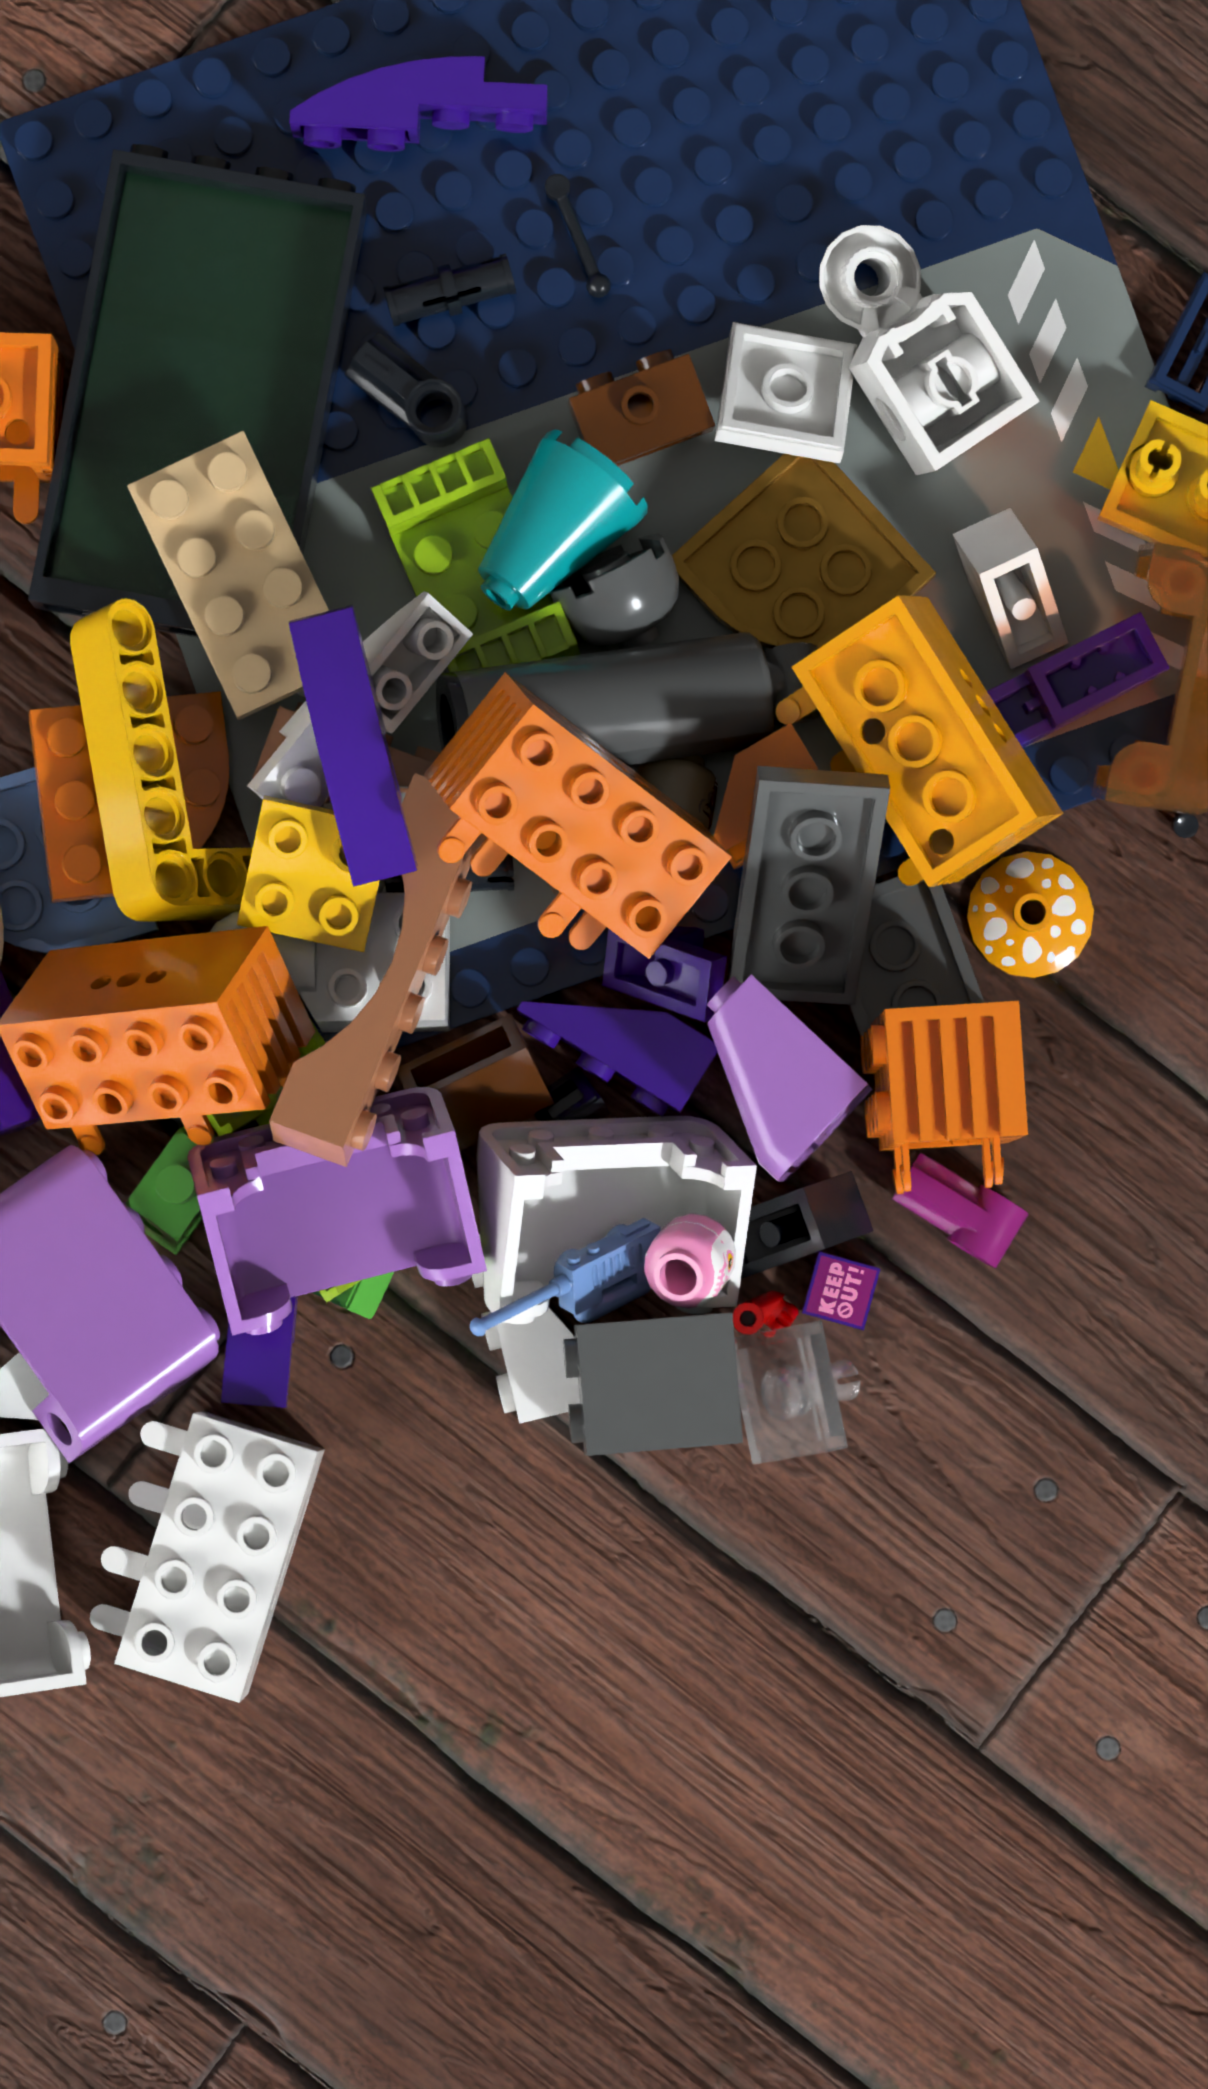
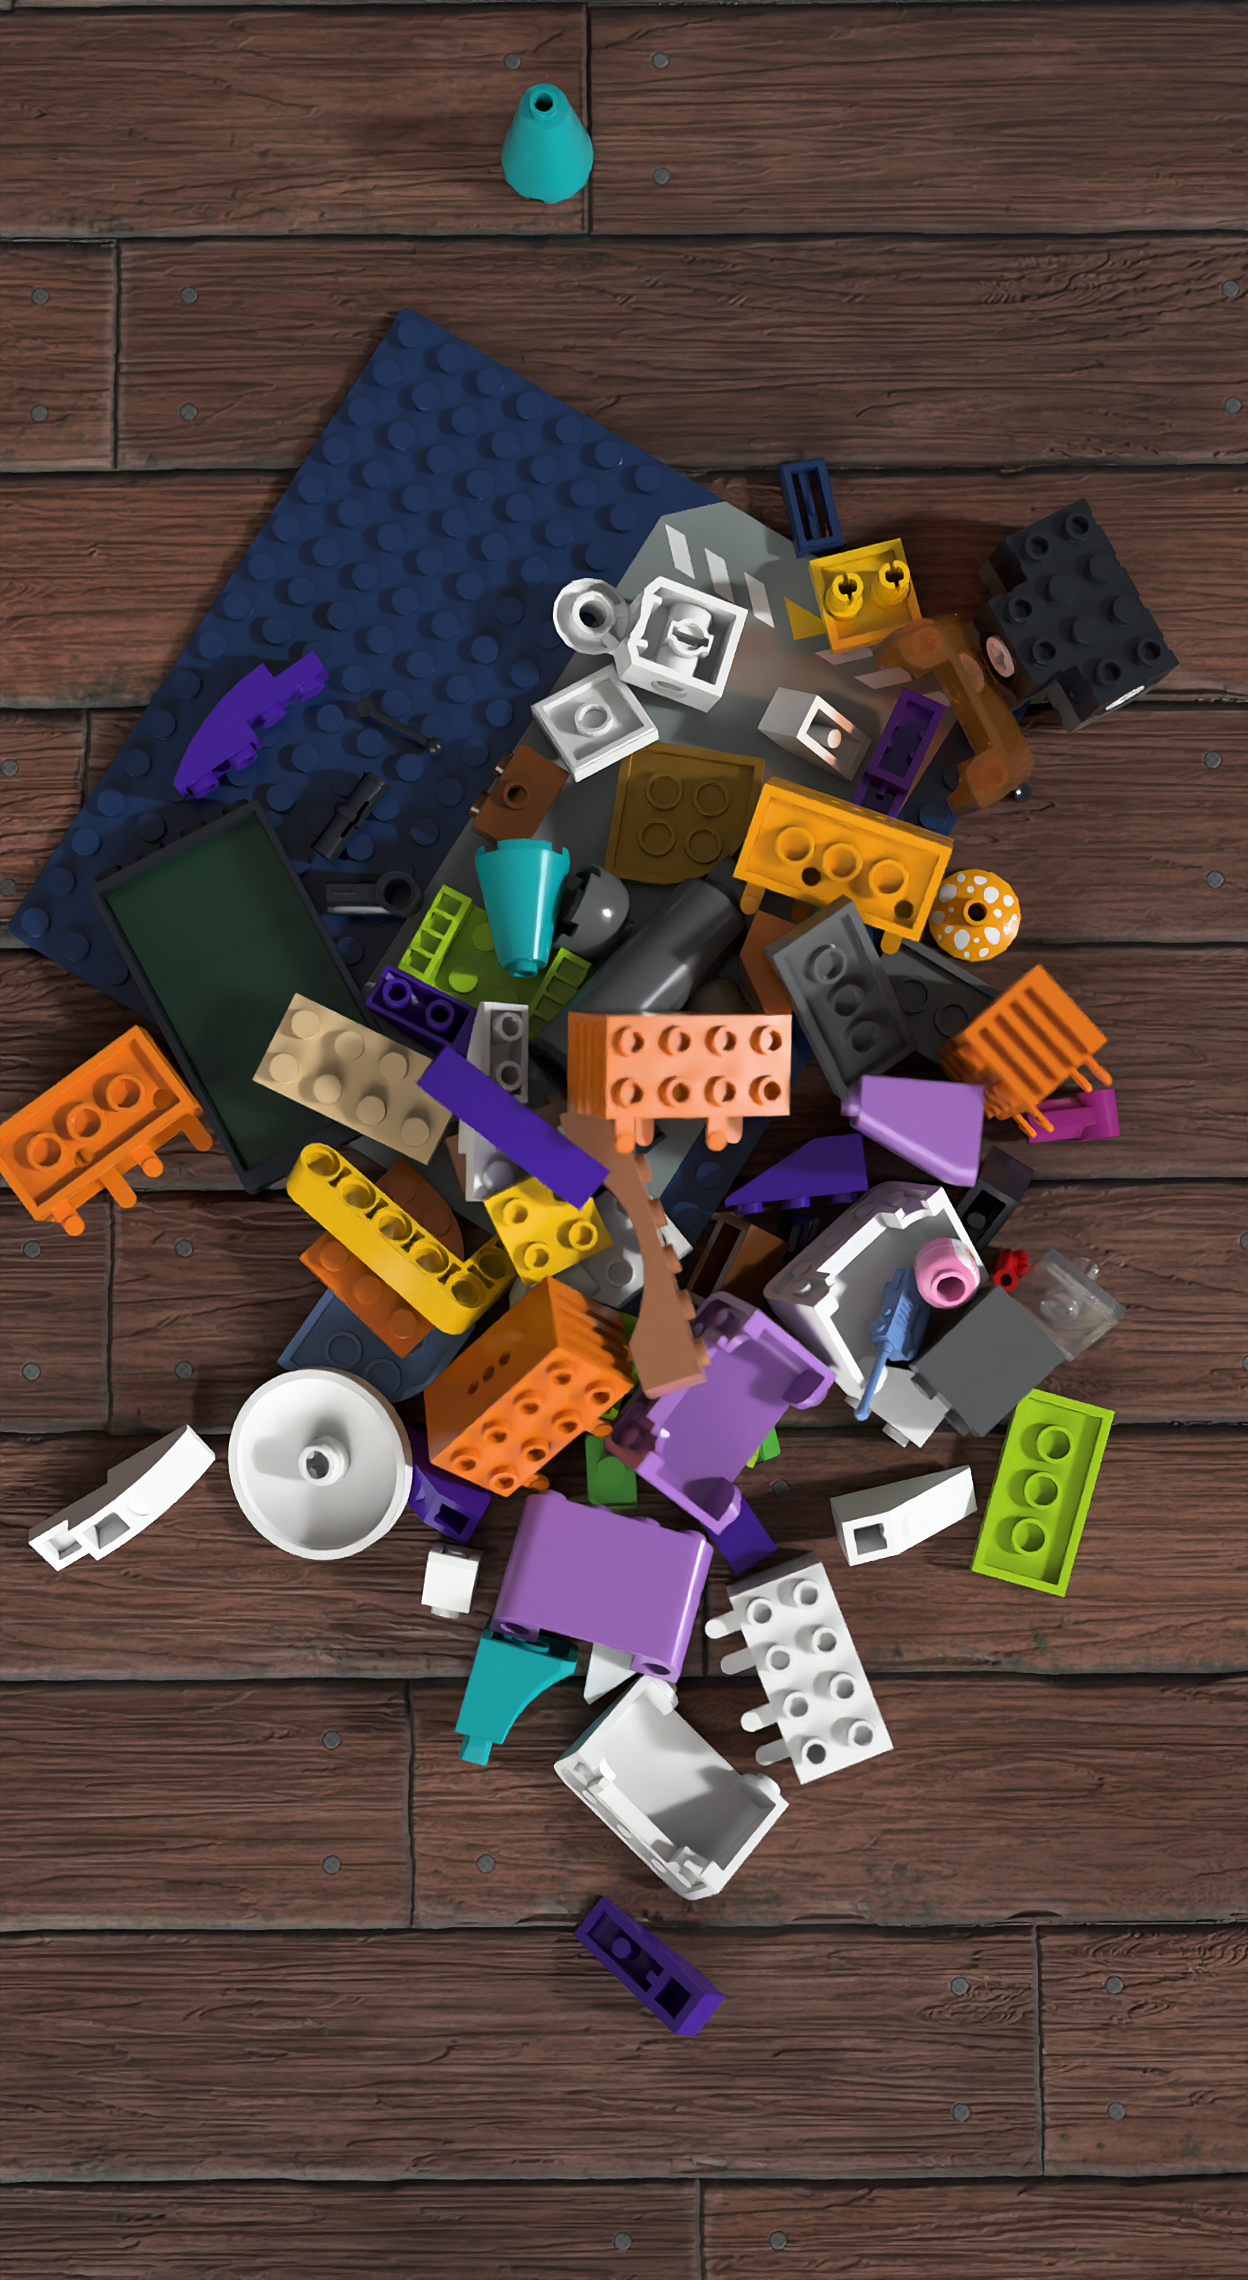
camera: 40 degrees left, 0 degrees up
(360, 554) = (422, 1011): none -> dark purple slope
(448, 1479) = (901, 1514): none -> white slope
(613, 1574) = (1042, 1491): none -> lime plate
(676, 976) = (811, 1112): dark purple slope -> none
(841, 1290) = (1040, 1220): tile -> none

